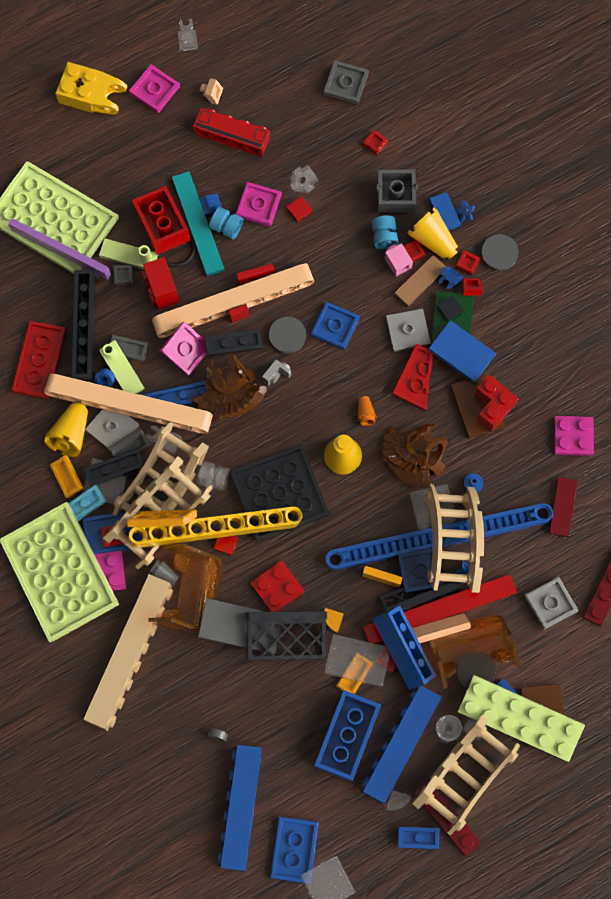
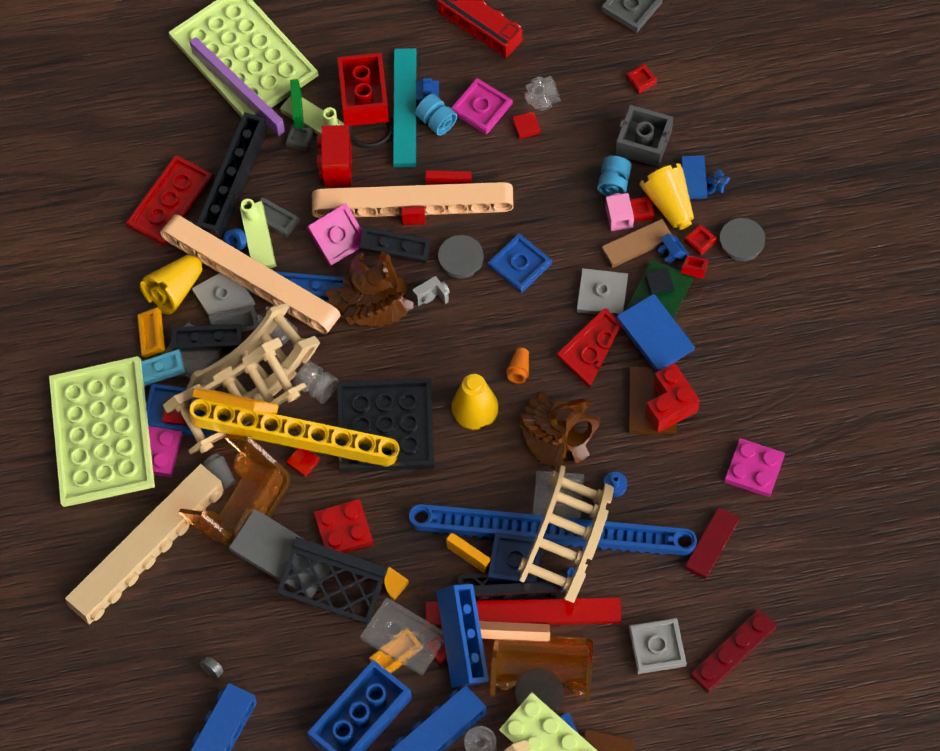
camera: 20 degrees right, 10 degrees down
(113, 249) = (297, 107): none -> green tile

